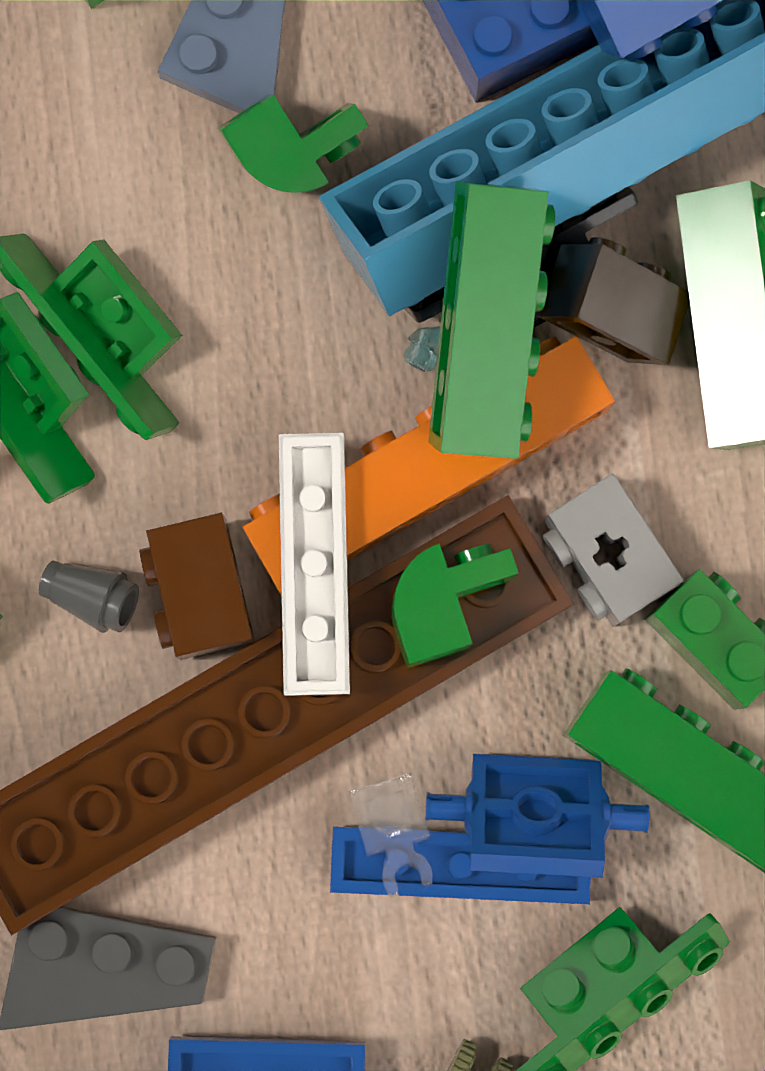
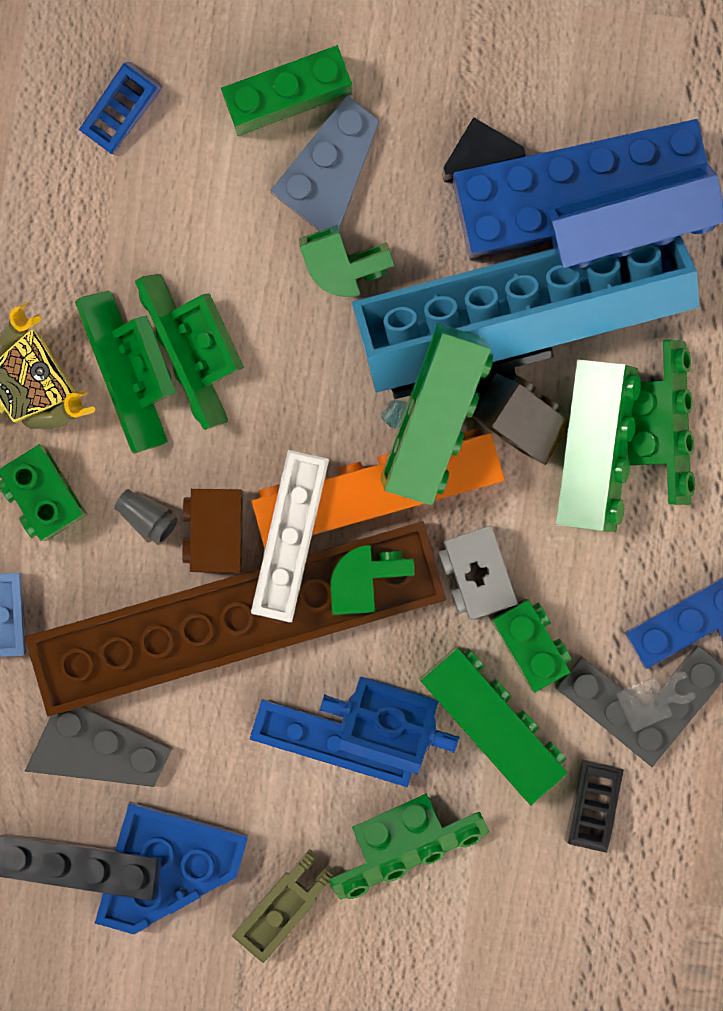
camera: 15 degrees right, 5 degrees up
(390, 822) = (298, 706): clear plate -> none

